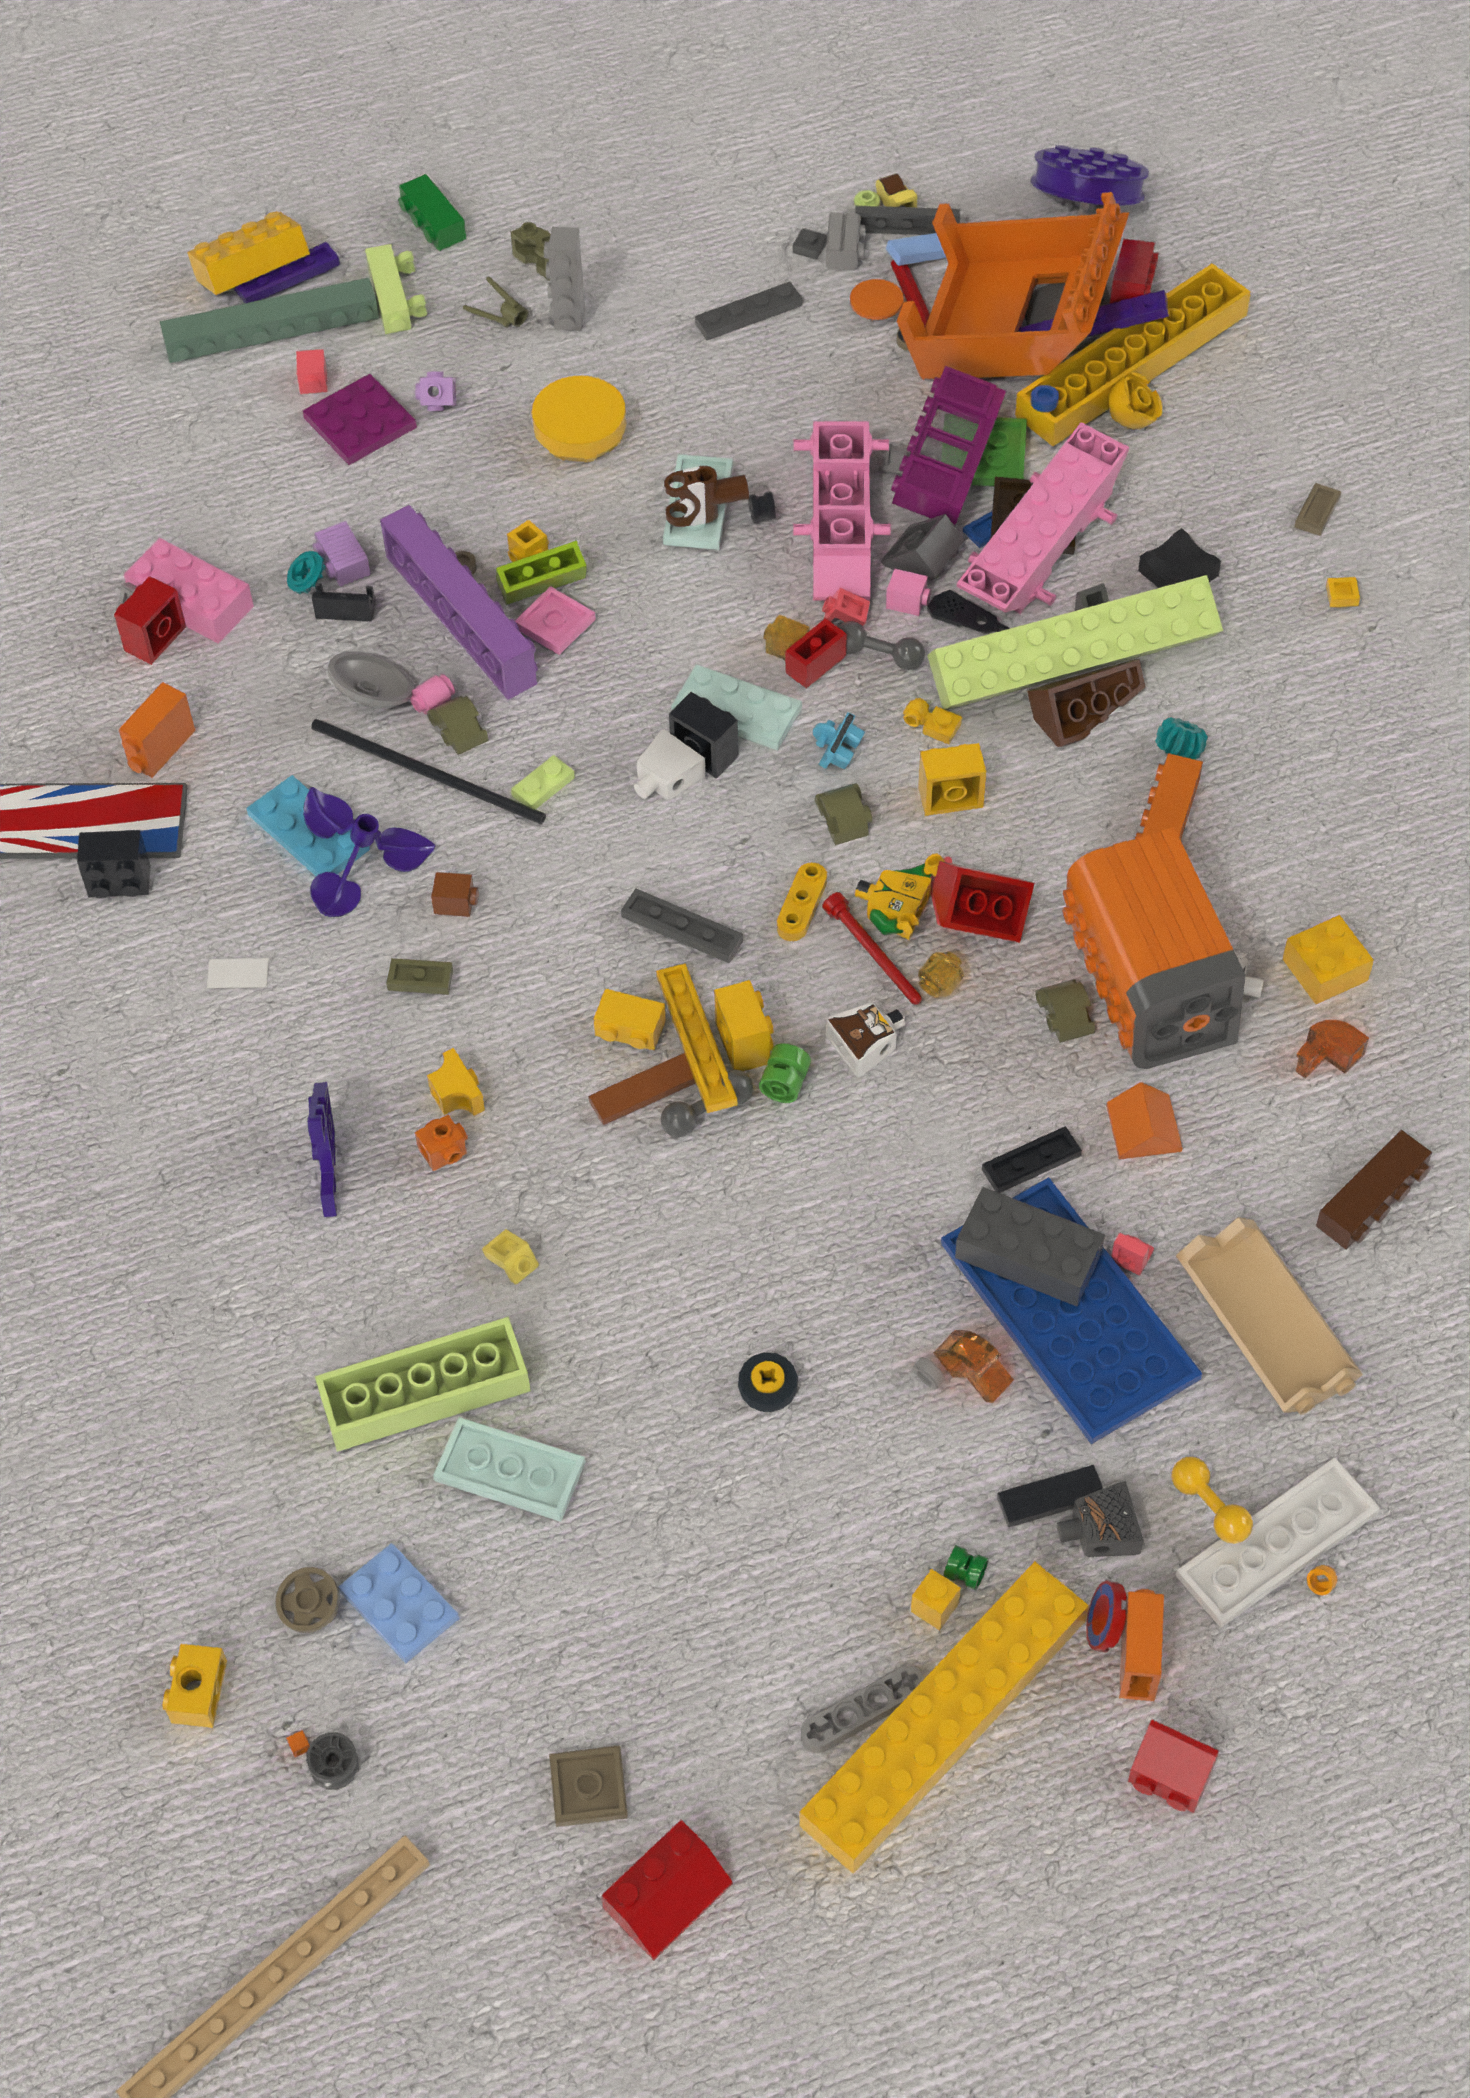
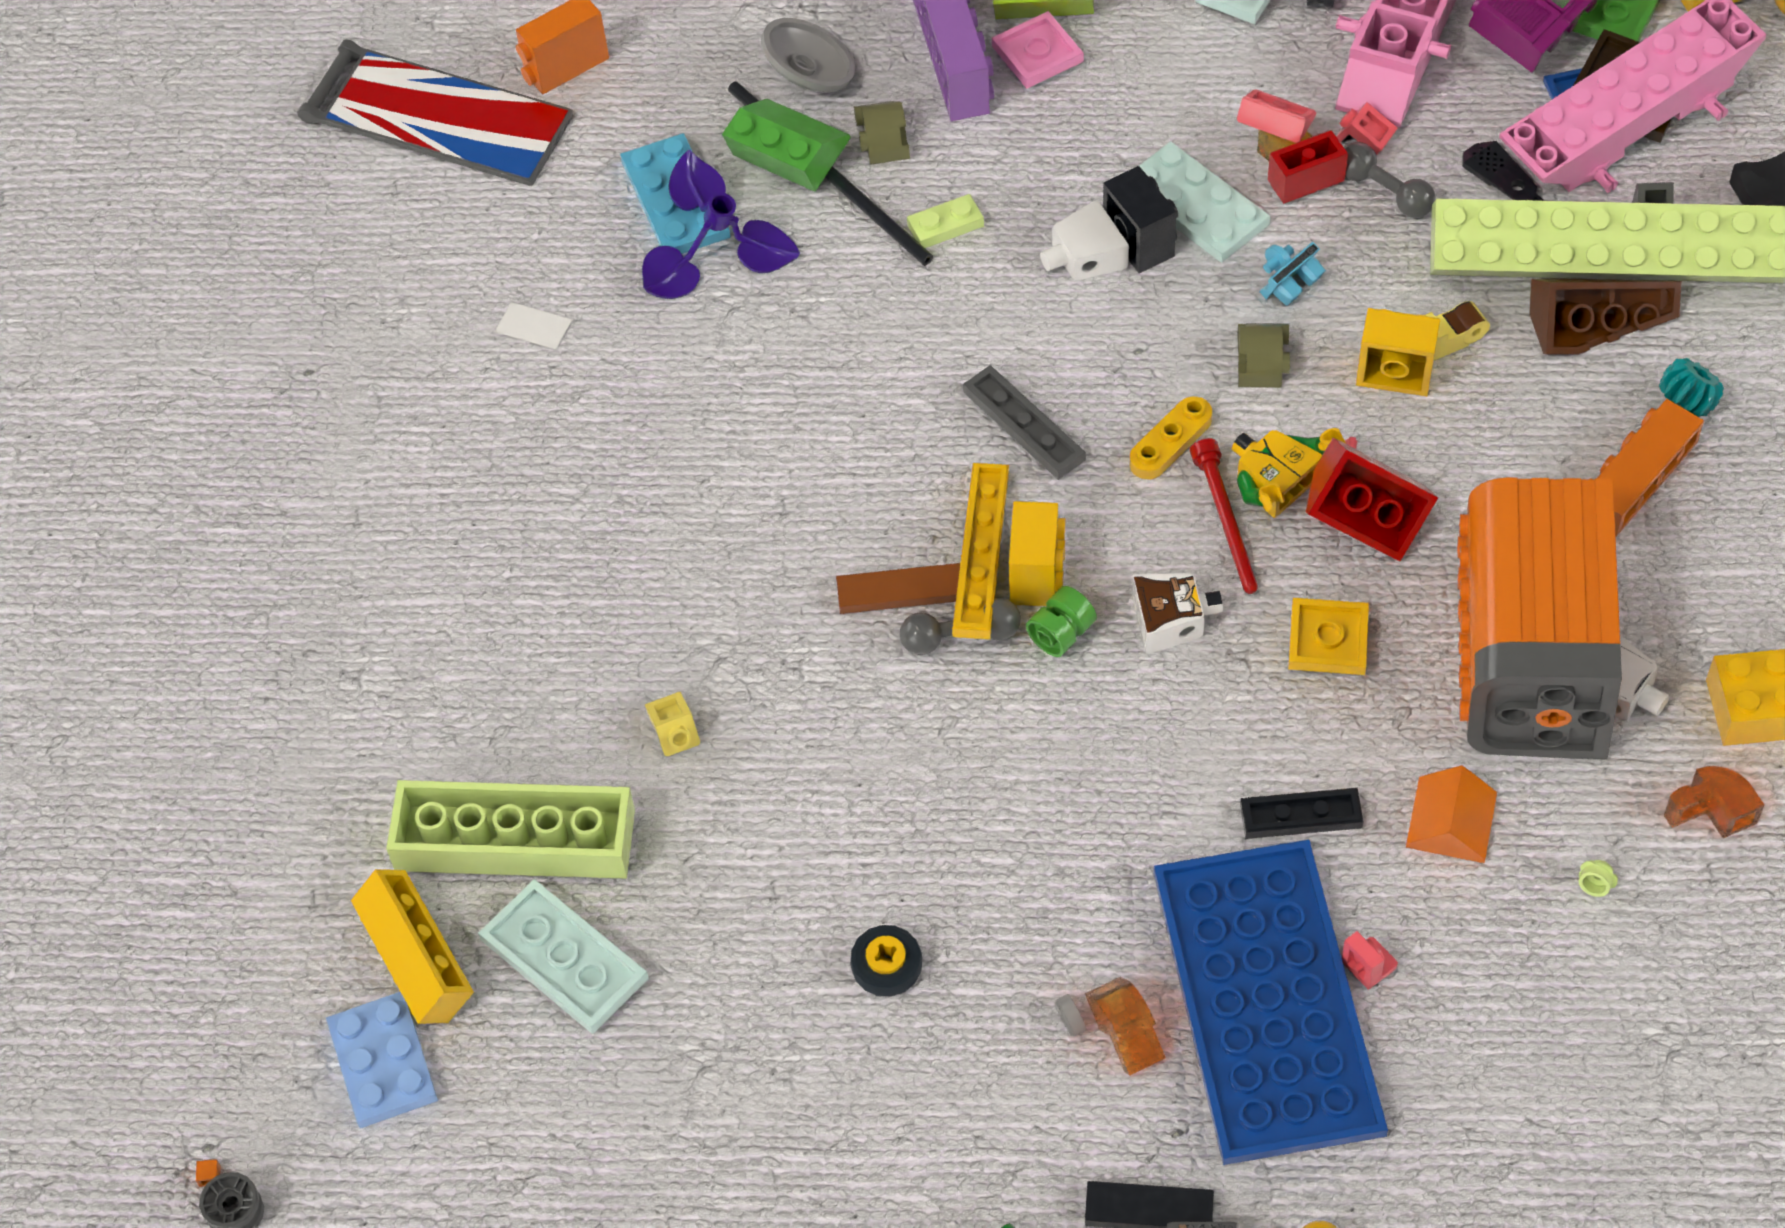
camera: 25 degrees right, 0 degrees up
(113, 863) = (453, 170): black brick -> none
(199, 1705) = (129, 1091): yellow brick -> none
(308, 1600) = (288, 1021): dark tan wheel -> none
(322, 1135) = (531, 513): dark purple wing -> none
(384, 757) = (785, 142): none -> bright green slope
(385, 1504) = (412, 946): none -> yellow brick
(419, 976) = (716, 388): olive plate -> none
(432, 693) = (869, 89): bright pink brick -> none
(441, 1142) = (654, 573): orange brick -> none
(454, 894) = (792, 311): dark orange brick -> none
(455, 1086) = (698, 517): yellow brick -> none
(629, 1019) = (916, 506): yellow brick -> none
(775, 619) = (1275, 115): none -> coral slope
(907, 592) = (1444, 130): bright pink brick -> none
(925, 547) = (1487, 88): dark grey slope -> none
(938, 724) = (1416, 288): yellow plate -> none
(941, 974) = (1289, 568): clear yellow head -> none
(991, 741) = (1459, 328): none -> light yellow leg
(993, 1017) = (1328, 636): none -> yellow plate
(1029, 1246) = (1246, 910): dark grey brick -> none
(1067, 1009) = (1418, 655): olive cylinder -> none
(1269, 1316) = (1499, 1093): tan cylinder -> none
(1270, 1133) = (1597, 878): none -> yellowish green plate
(1374, 1189) = (1695, 986): reddish brown brick -> none

